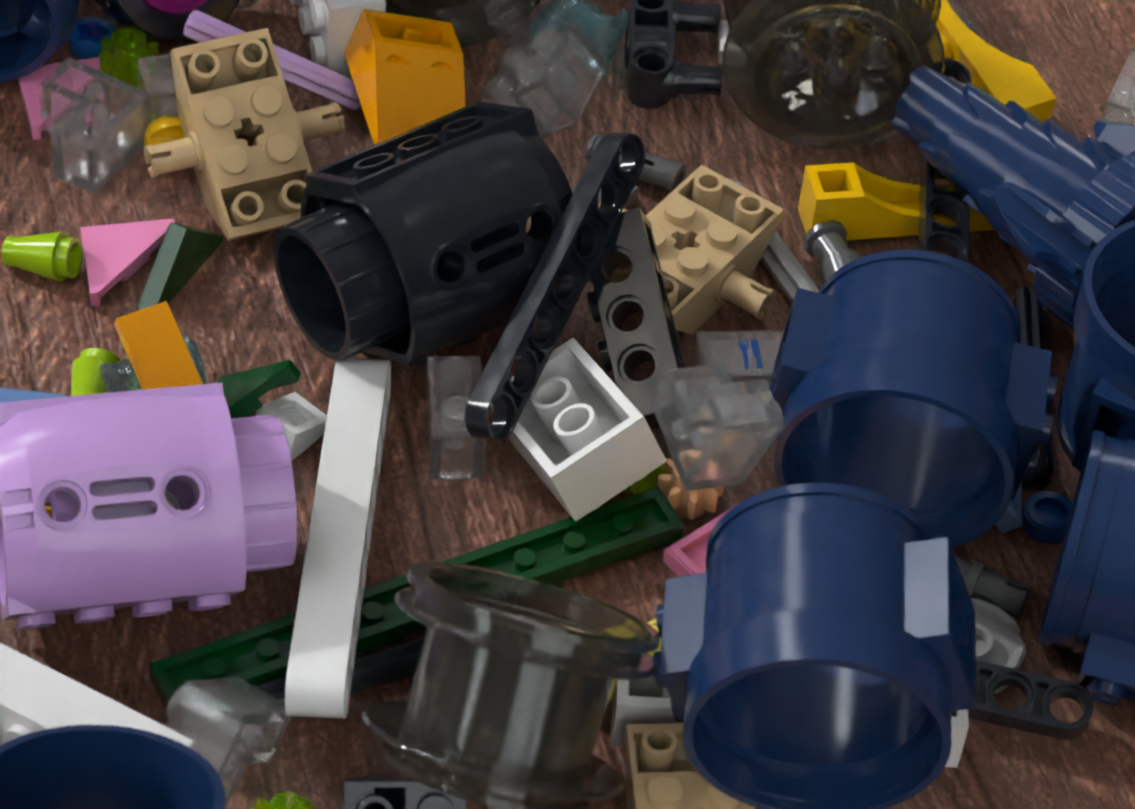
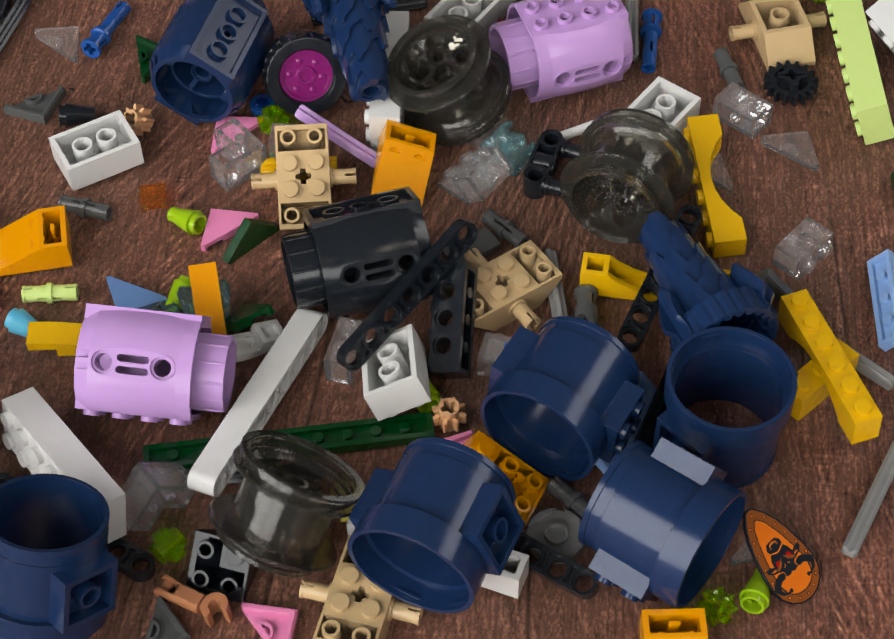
camera: 25 degrees right, 5 degrees up
(715, 425) = (460, 387): clear brick -> none

